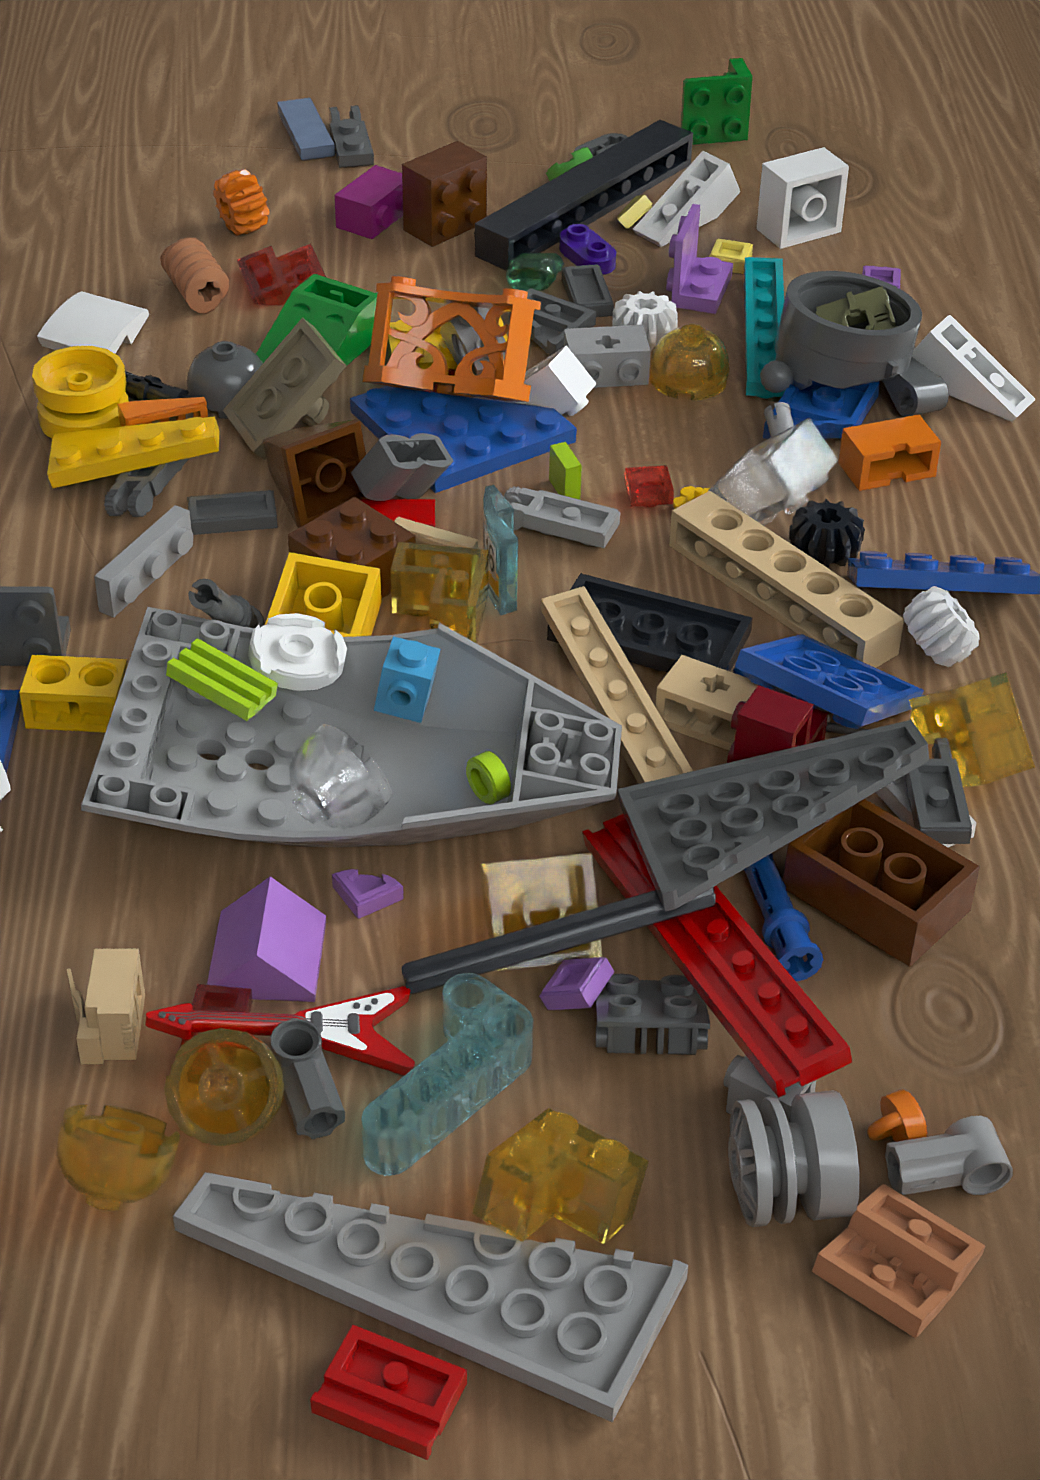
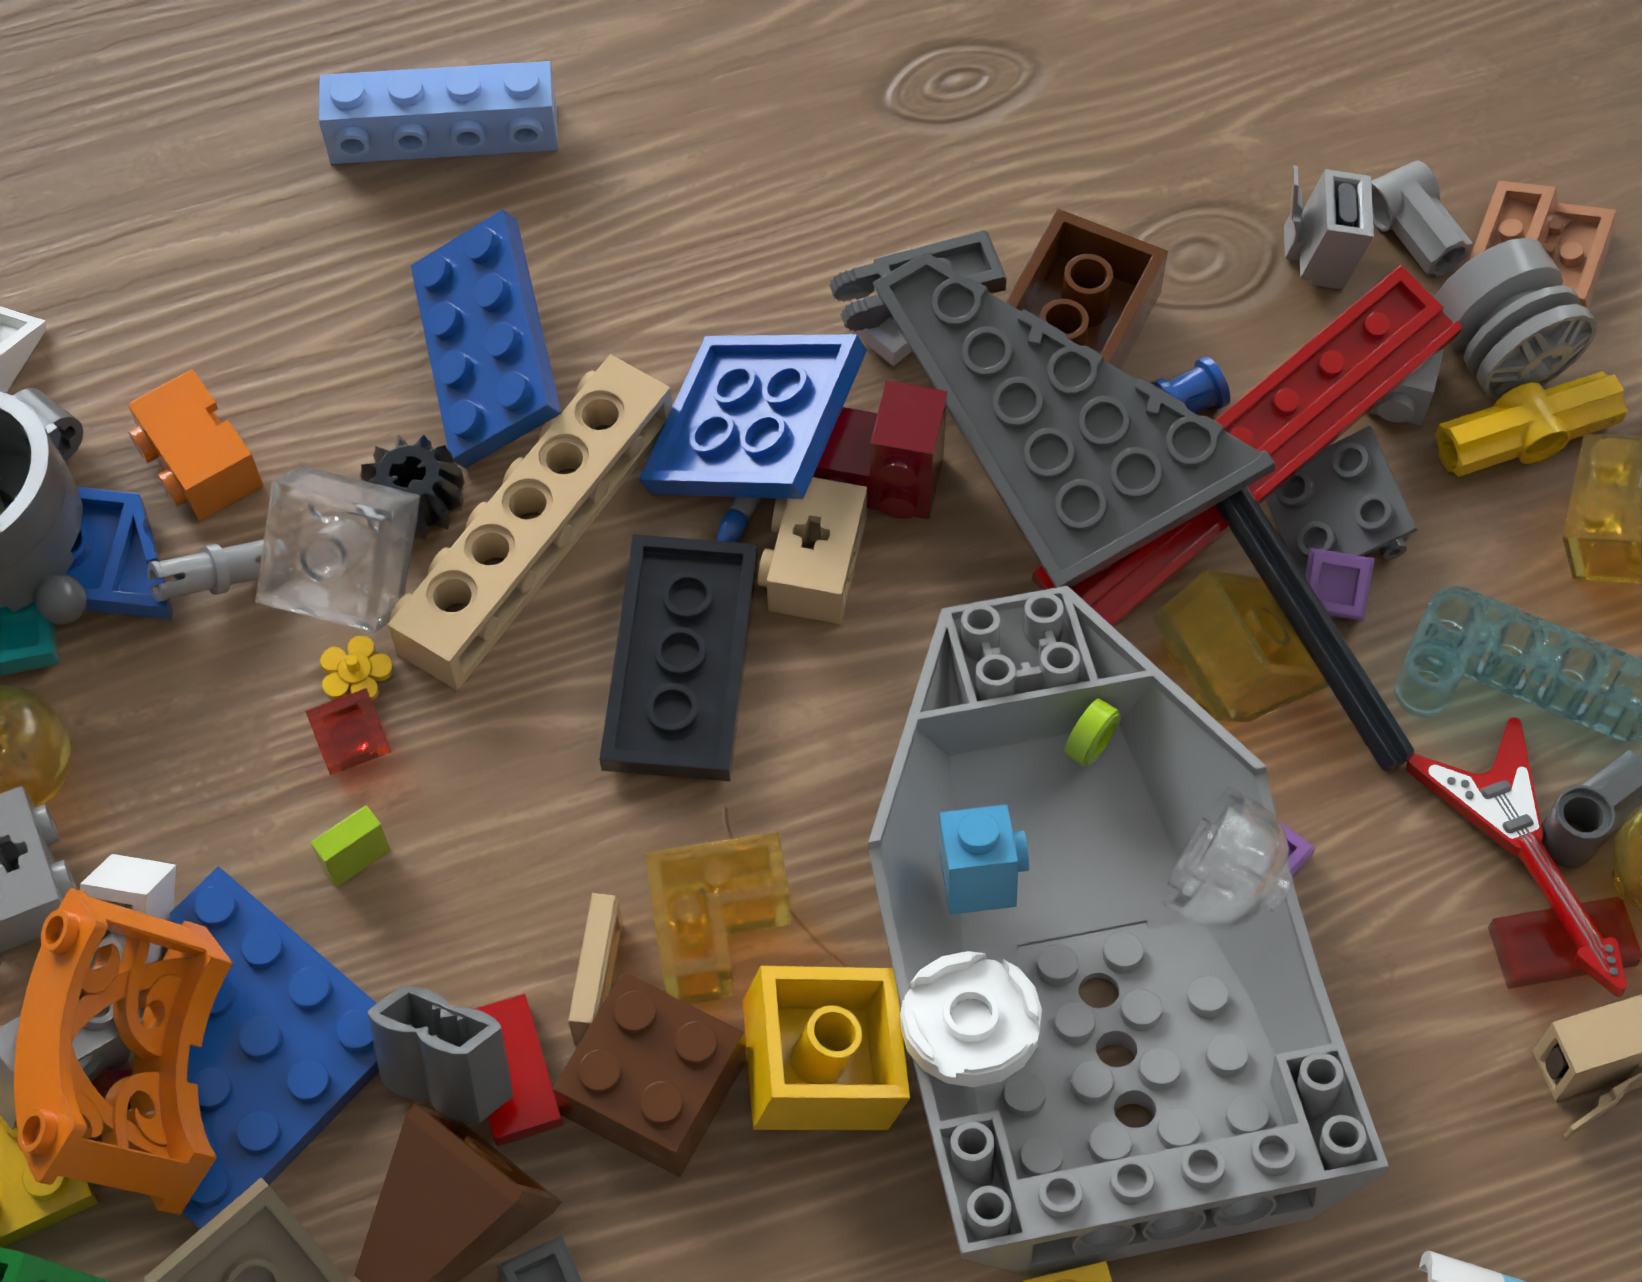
camera: 105 degrees left, 20 degrees up
(224, 607) = (880, 1168): dark grey pin -> none
(226, 675) = (1096, 1030): lime tile -> none
(269, 945) = (1424, 931): medium lavender slope -> none
(503, 550) = (600, 863): clear light blue slope -> none
(563, 516) = (454, 830): light grey hinge -> none
(613, 685) = (856, 642): tan plate -> none
(692, 1168) = (1530, 423): none -> yellow piece
(900, 1118) = (1388, 255): orange tile -> none
(939, 1062) = (1331, 228): none -> light grey piece
(941, 626) = (601, 320): white gear -> none
(980, 728) = (779, 260): clear yellow brick -> none

